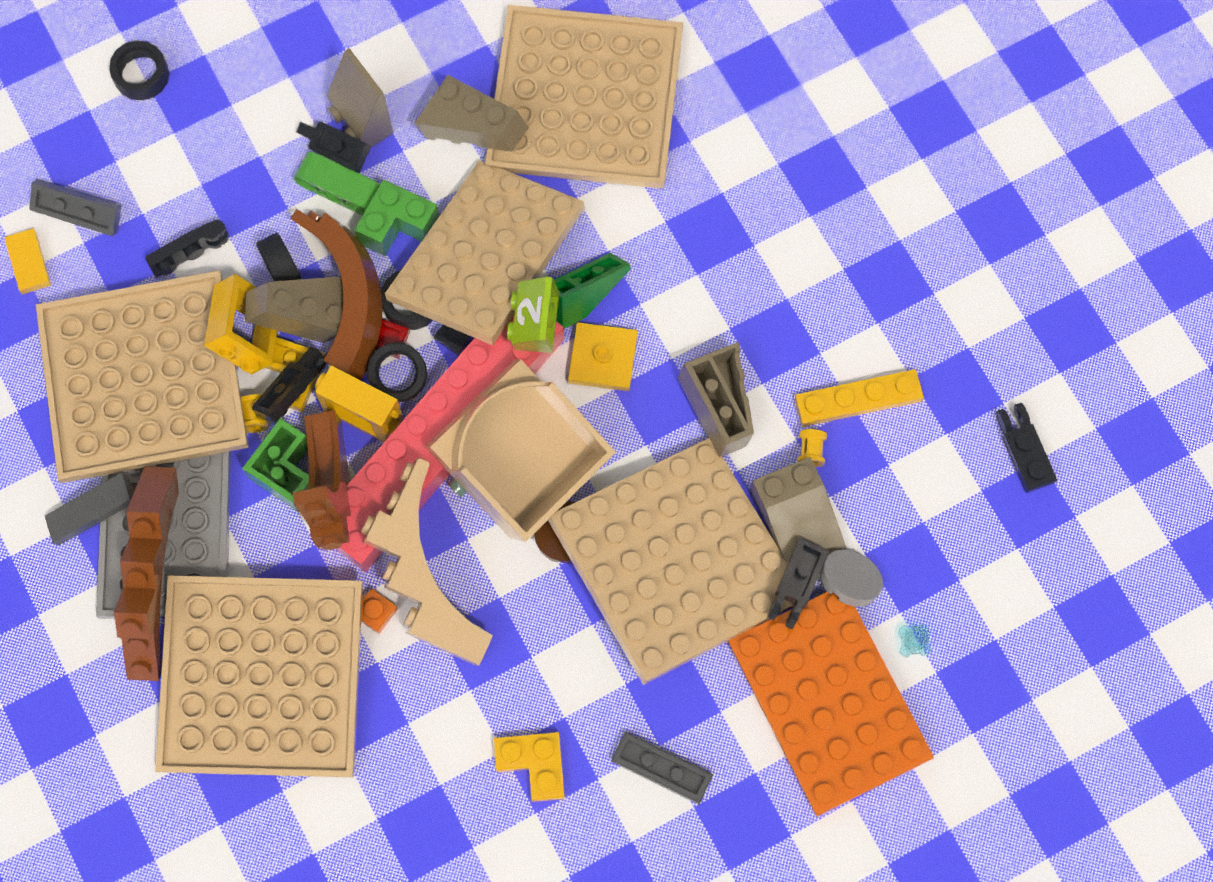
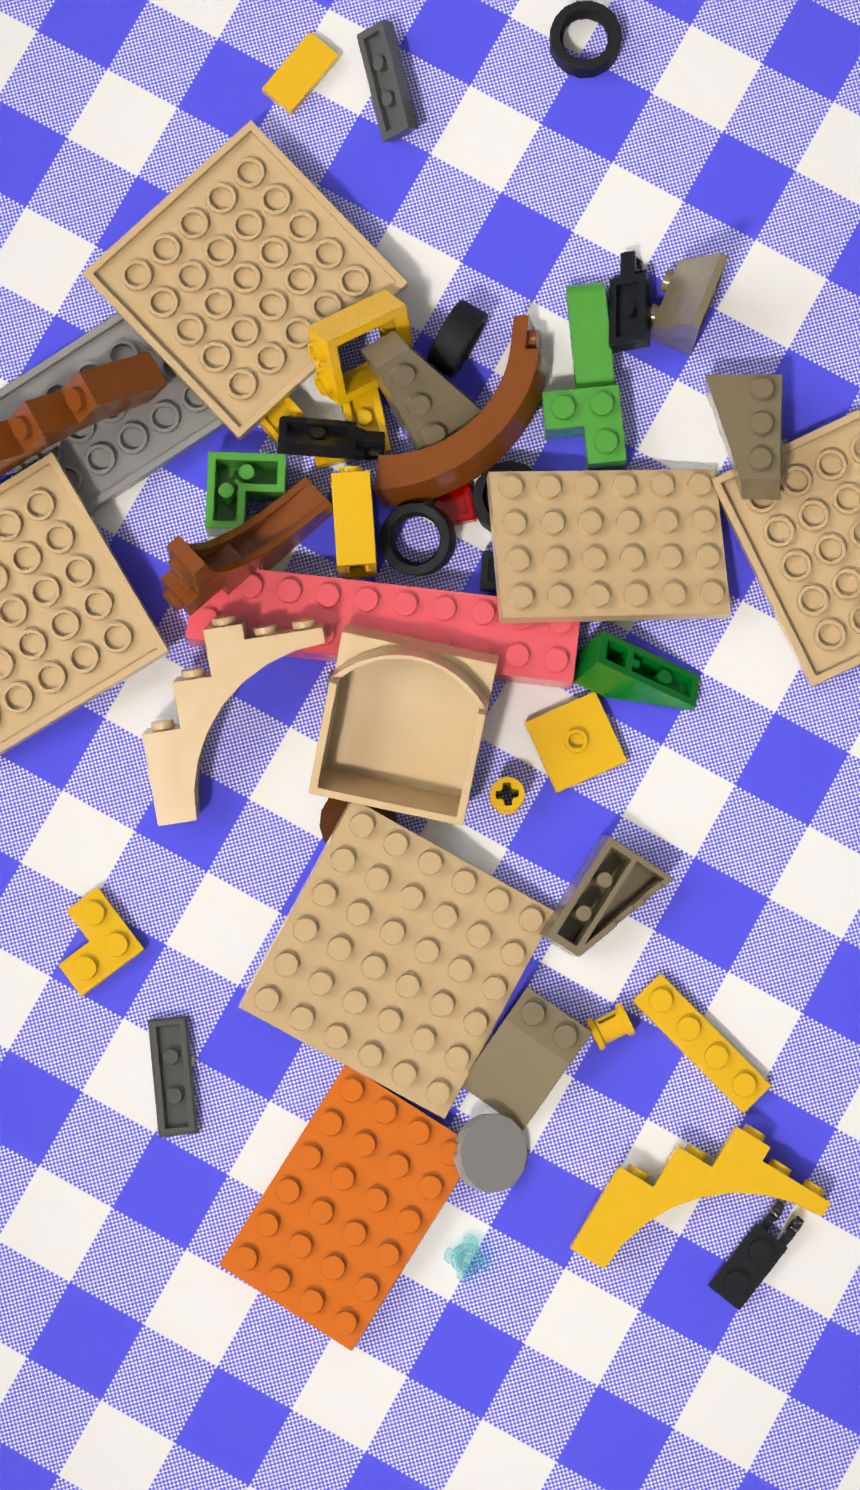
camera: 60 degrees right, 10 degrees up
(89, 509) = (76, 324): dark grey tile -> none
(187, 247) = (419, 229): black hinge -> none
(376, 611) = (155, 683): orange plate -> none
(534, 316) = (554, 648): lime slope -> none
(605, 413) = (515, 788): none -> yellow bush
(798, 579) = (451, 1099): black hinge -> none
(942, 506) = (737, 1168): none -> yellow arch

